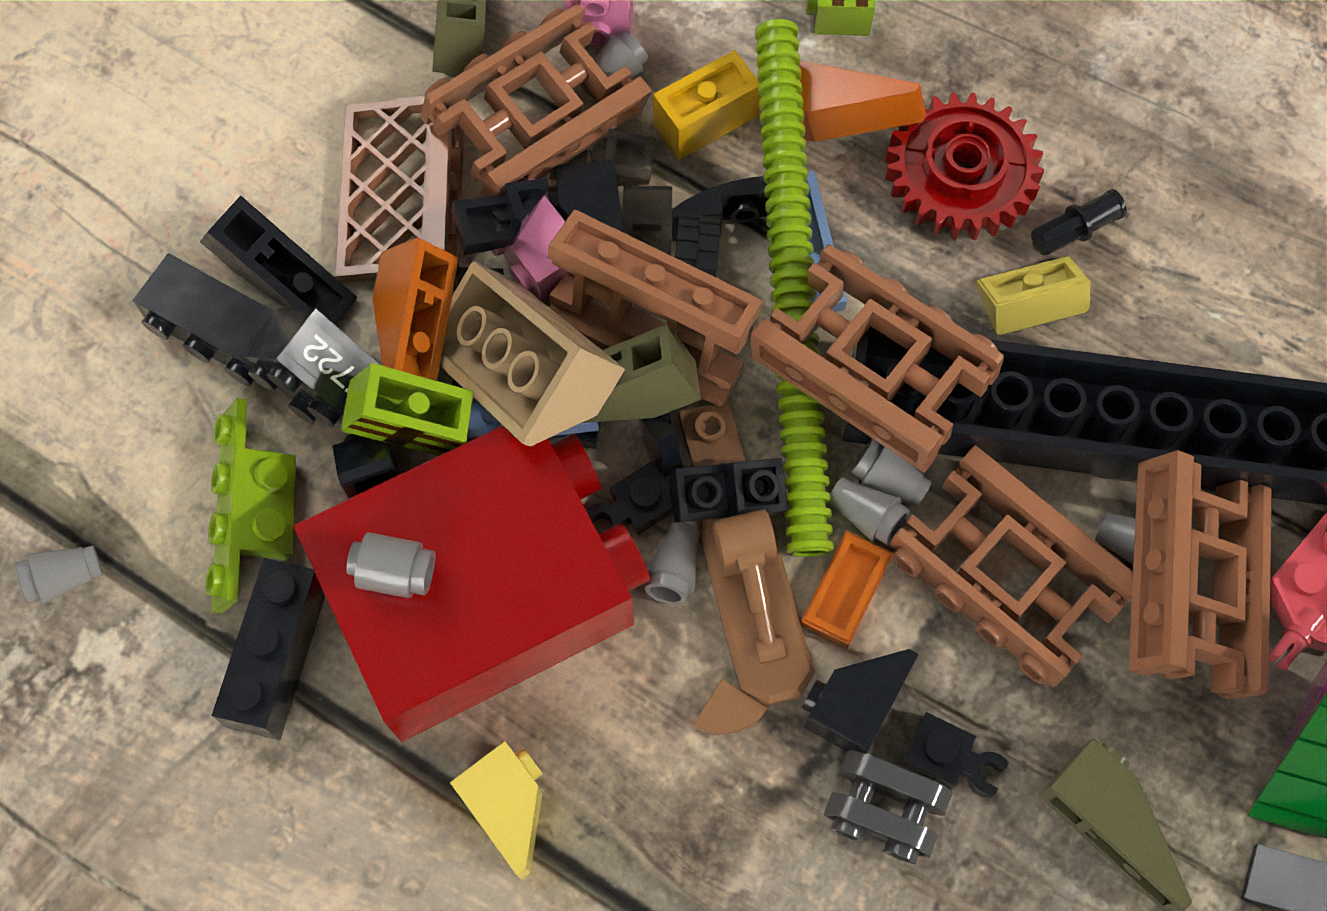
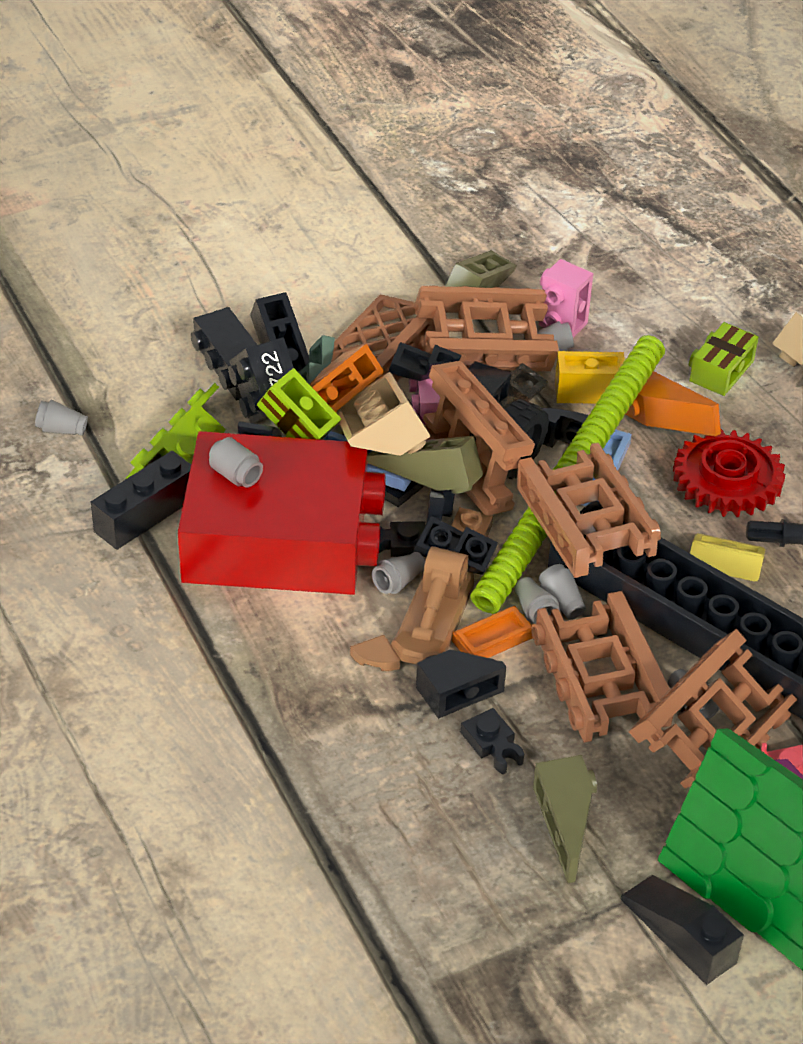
camera: 30 degrees right, 25 degrees down
(356, 284) = (319, 358): none -> sand green slope
(505, 802) = (216, 626): light yellow slope -> none
(856, 817) = (433, 735): dark grey brick -> none

